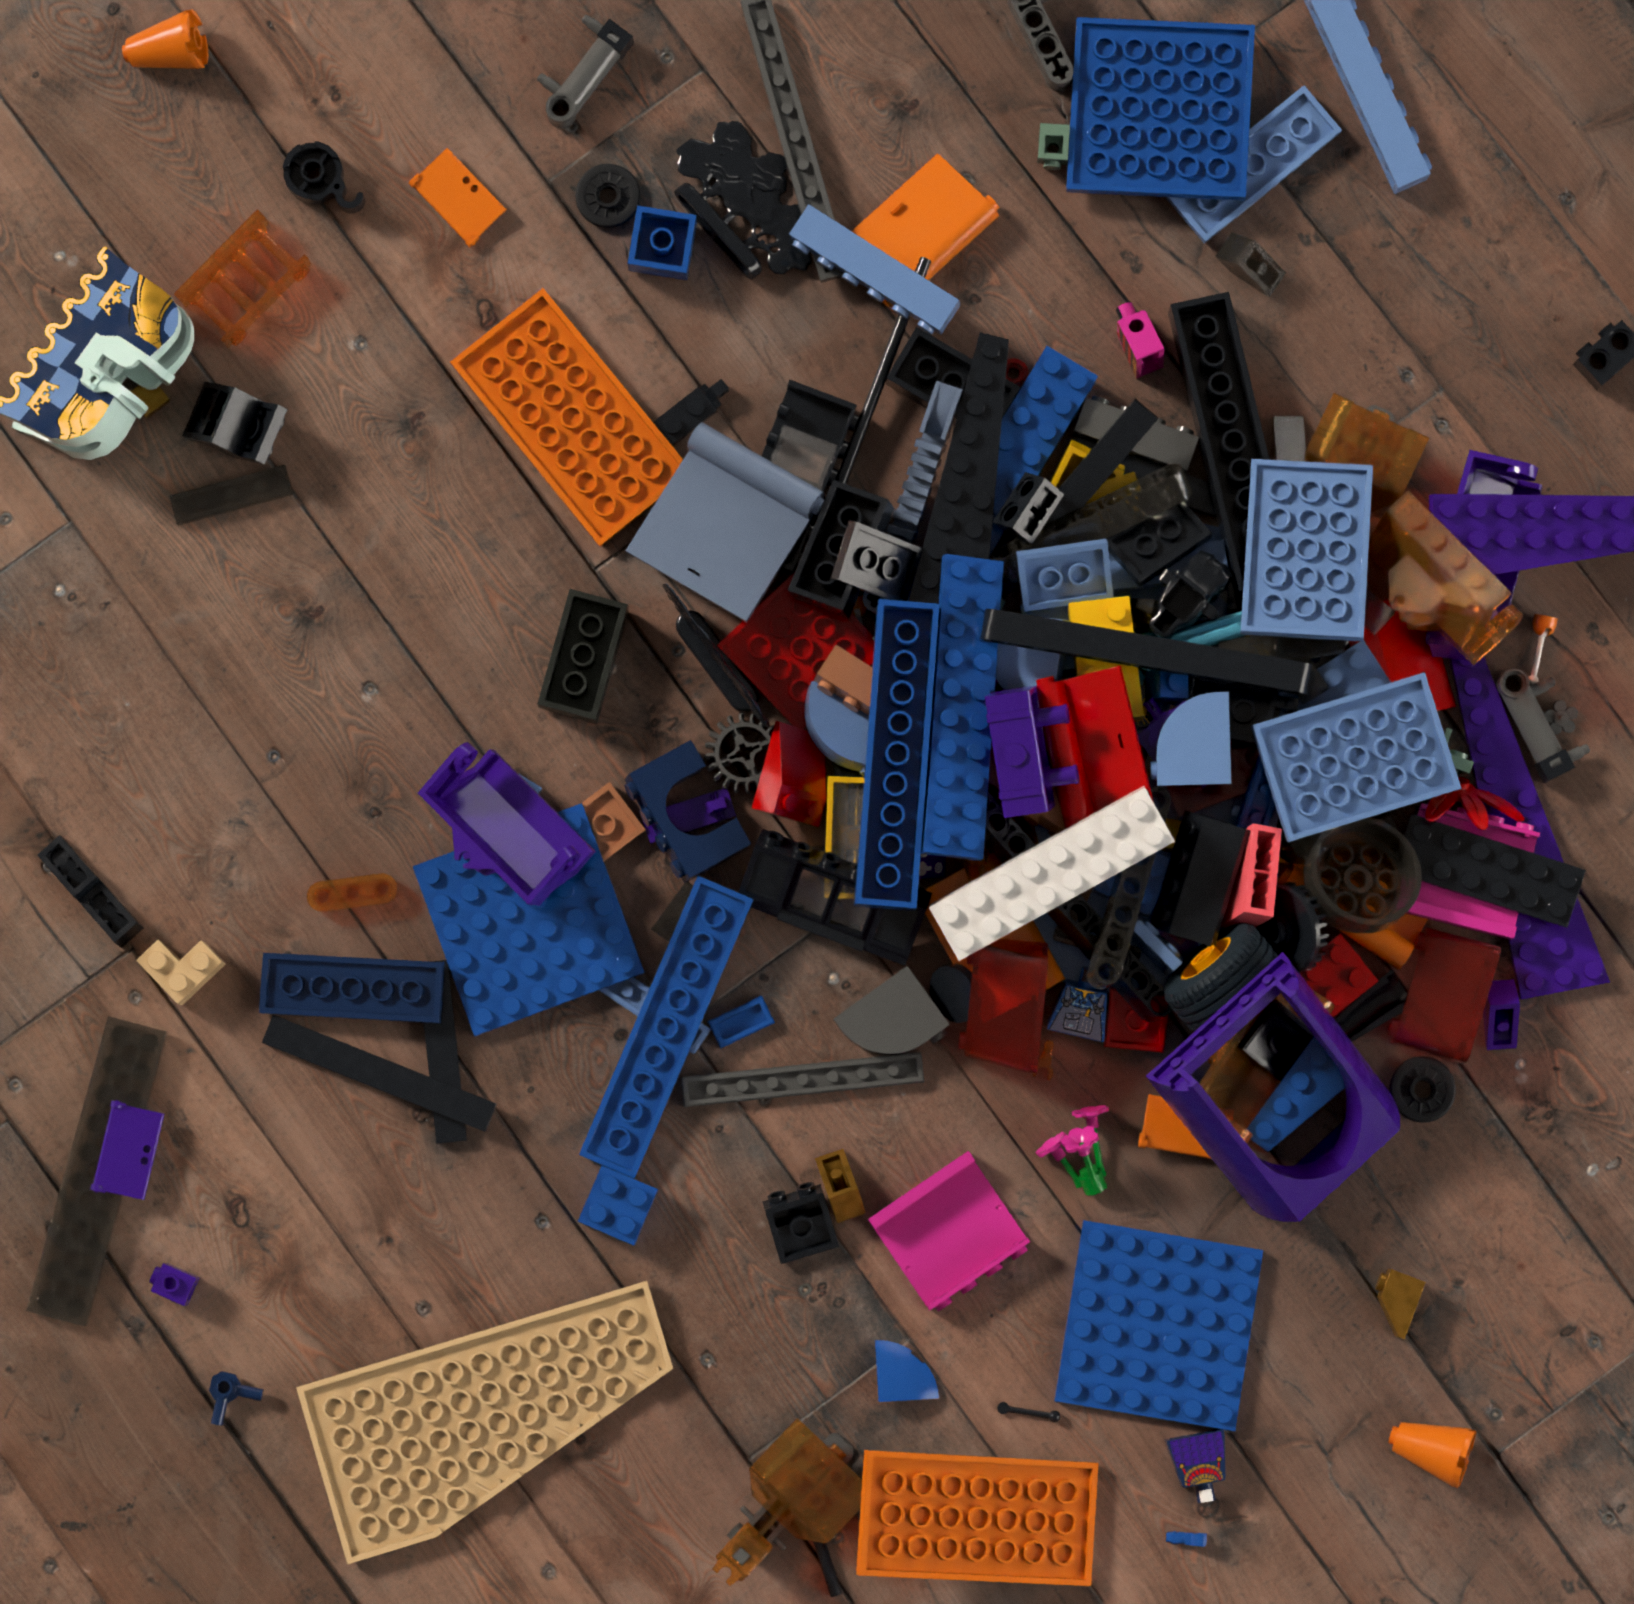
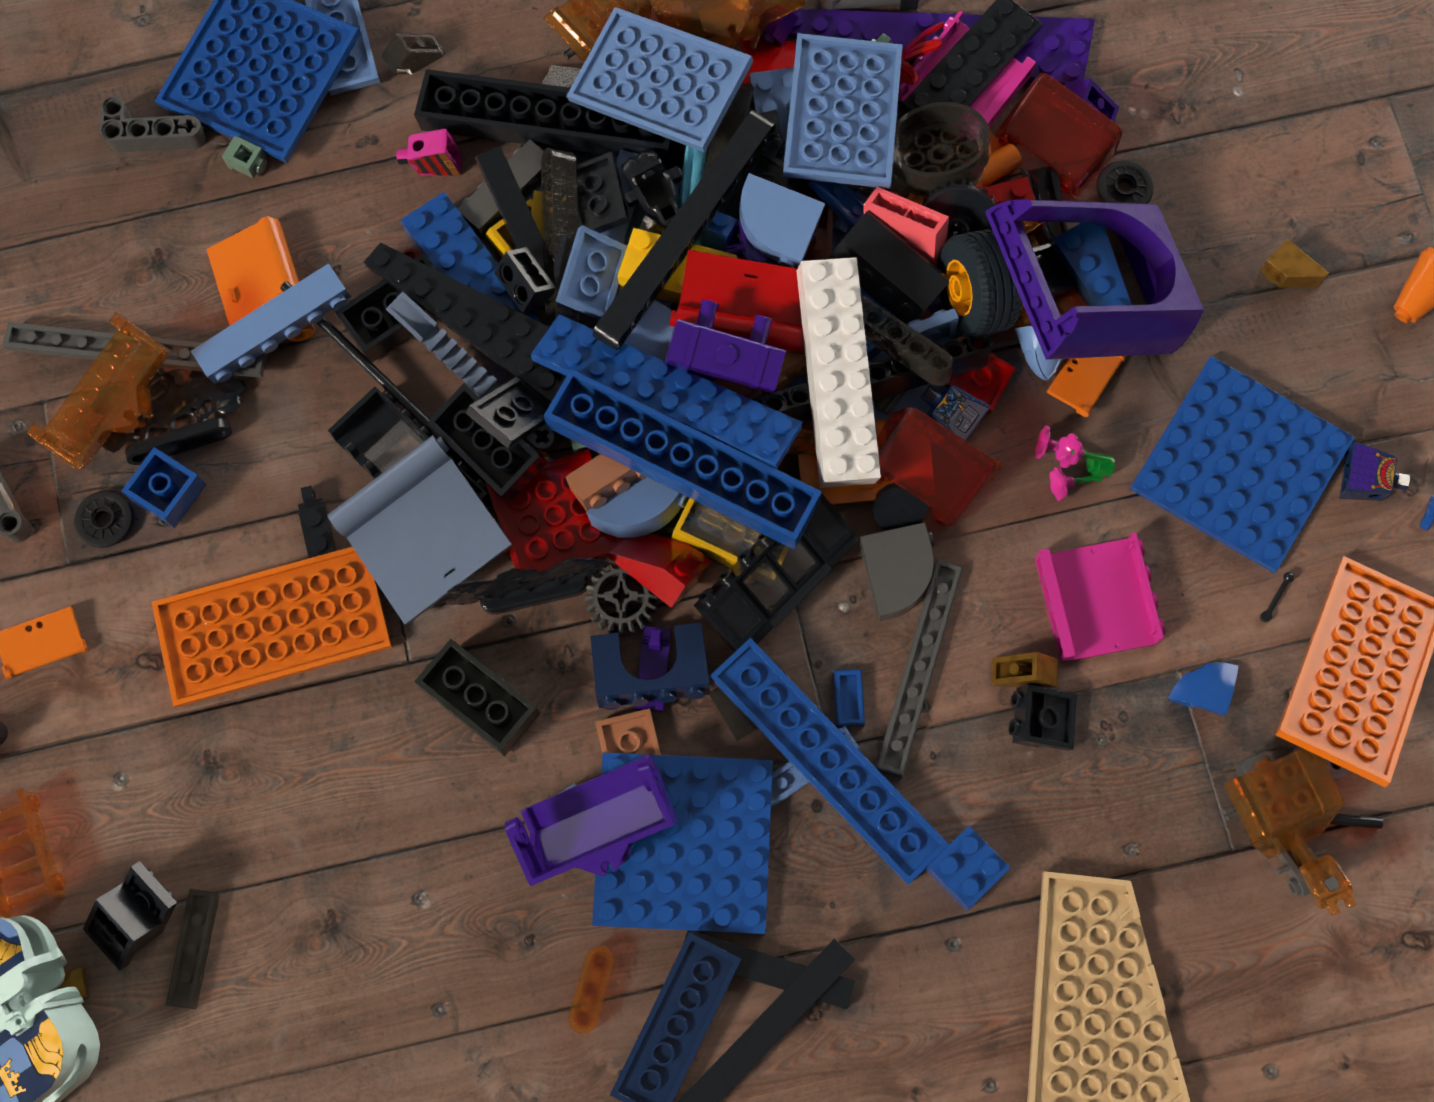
camera: 60 degrees left, 10 degrees down
(725, 139) = (106, 397): none -> clear orange piece

